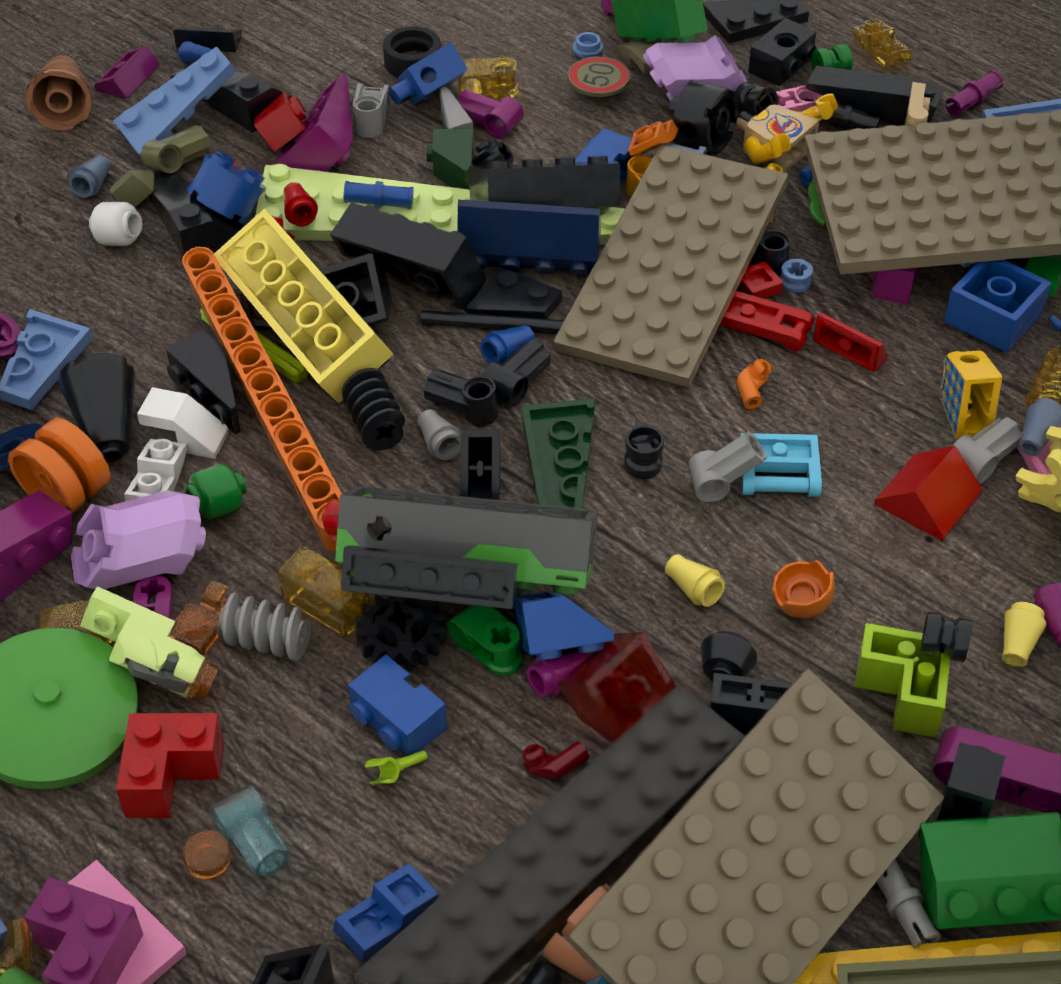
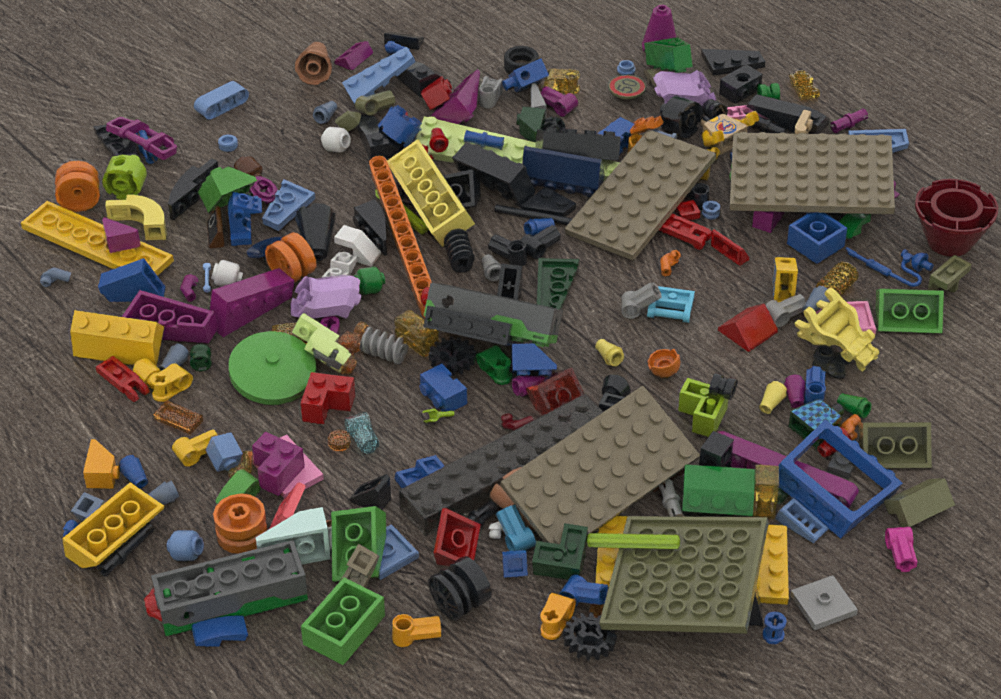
camera: 10 degrees right, 5 degrees down
(644, 452) = (599, 288): black wheel -> none

